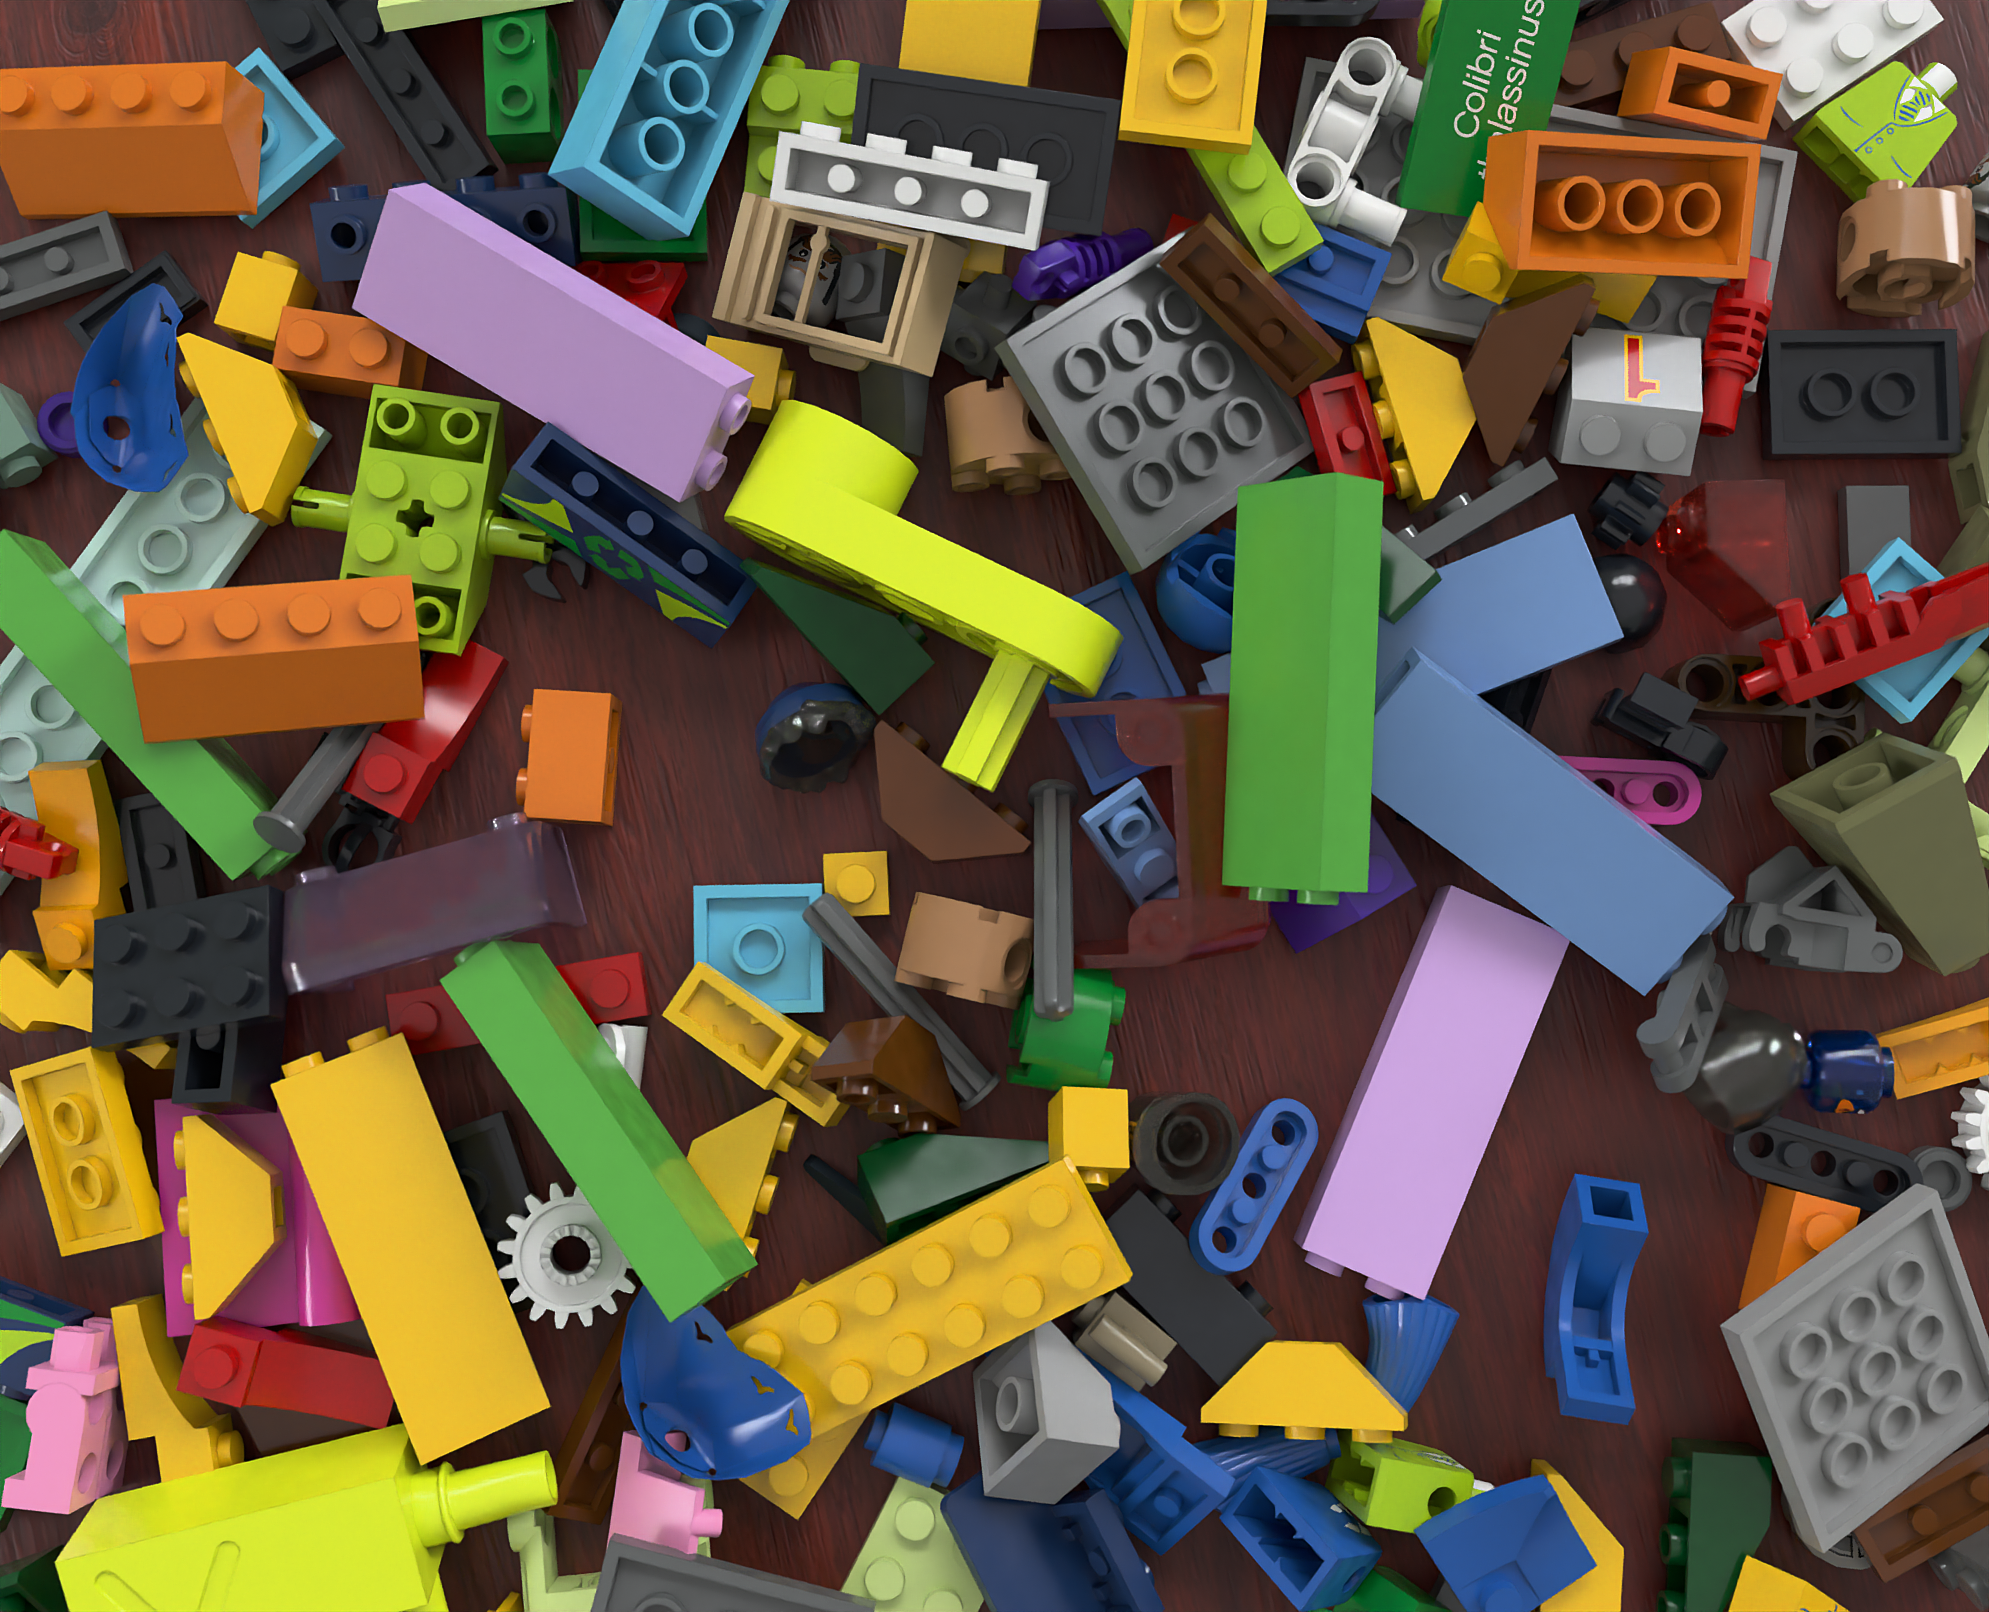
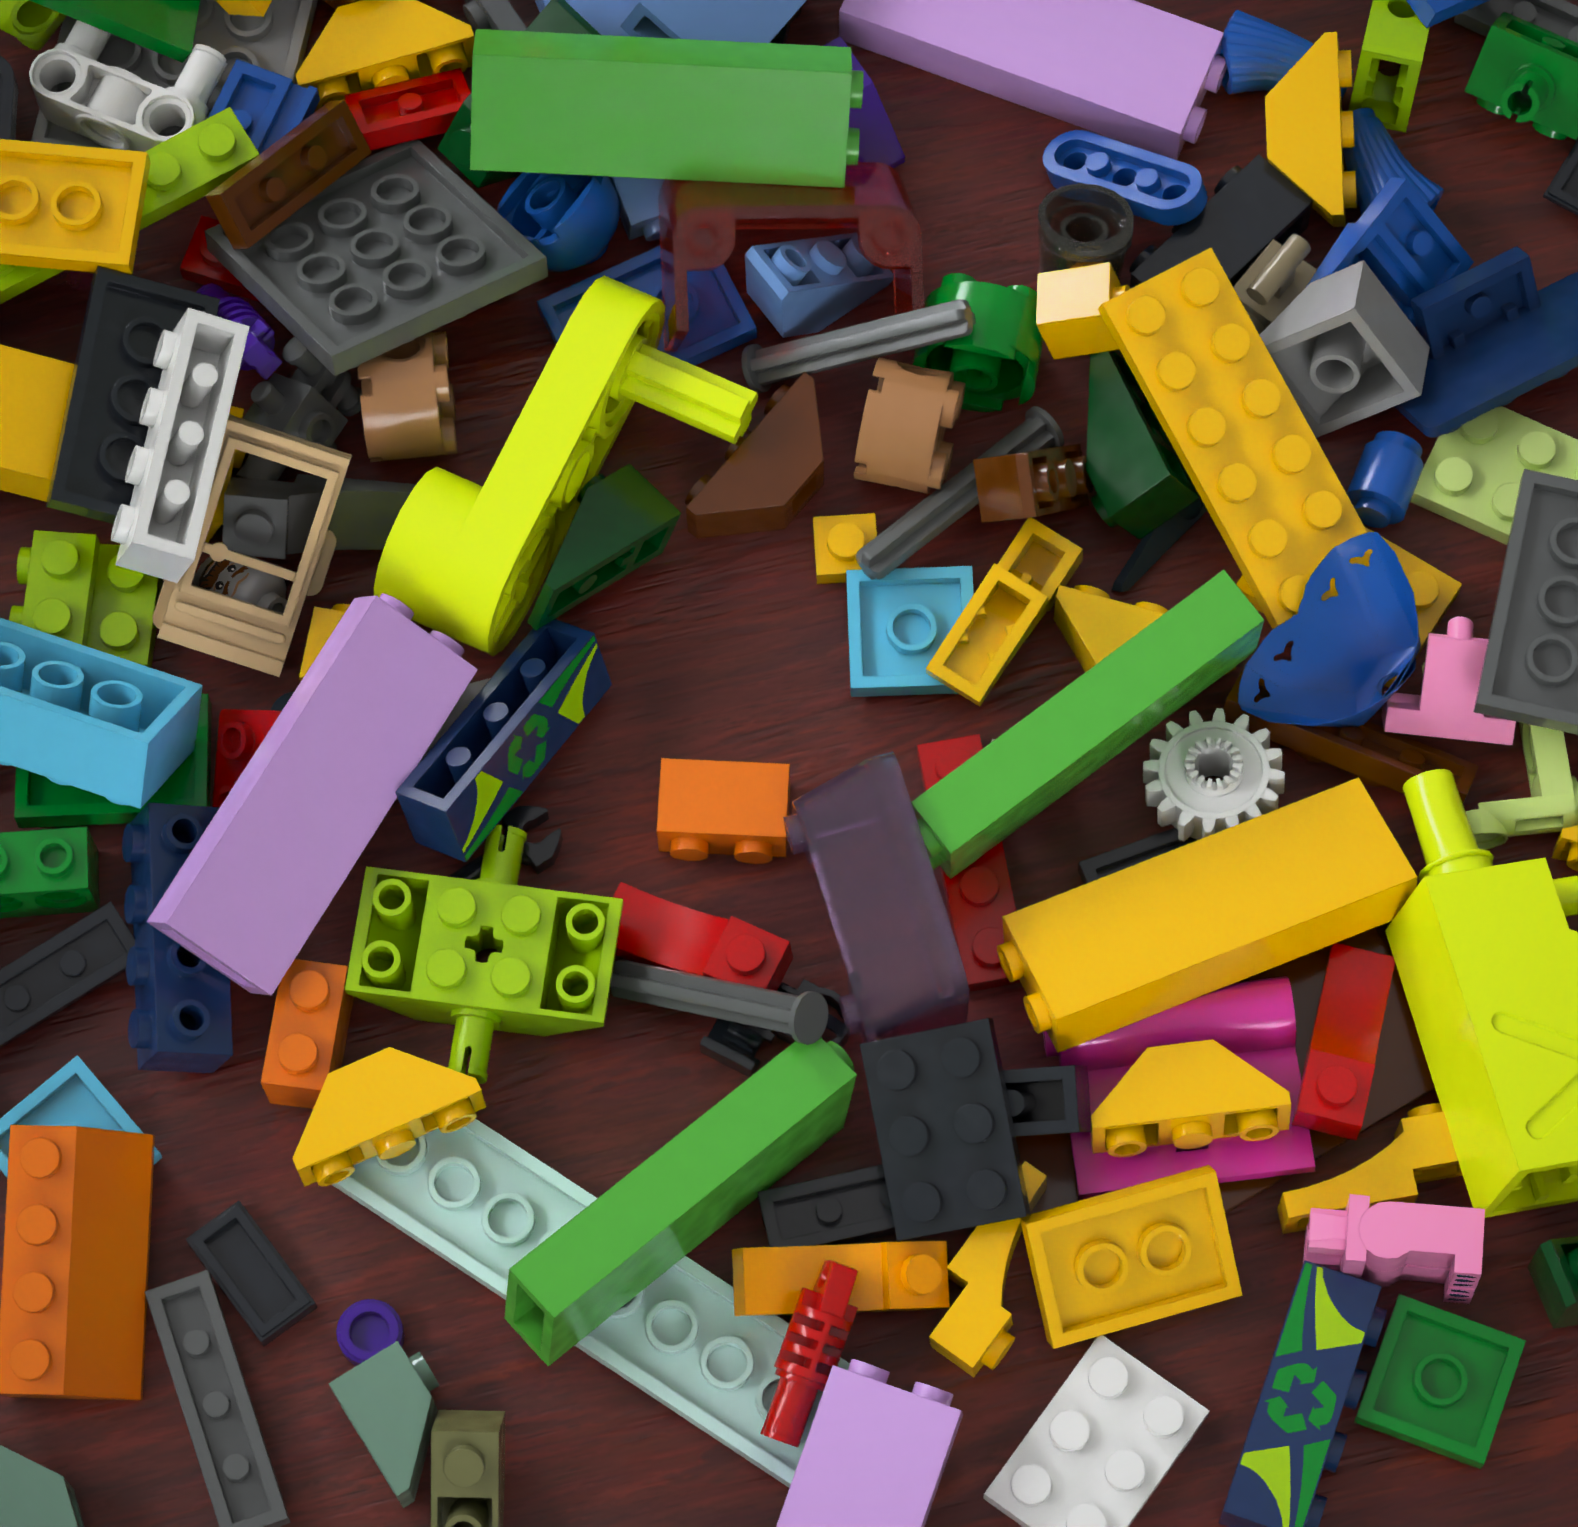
camera: 90 degrees left, 15 degrees down
(132, 352) = (353, 1229): blue piece -> none
(256, 295) = (248, 1125): yellow brick -> none
(274, 658) = (636, 1024): orange slope -> none
(812, 736) = (697, 580): clear smoke hair -> none
(1301, 1538) = (1444, 127): blue torso -> none

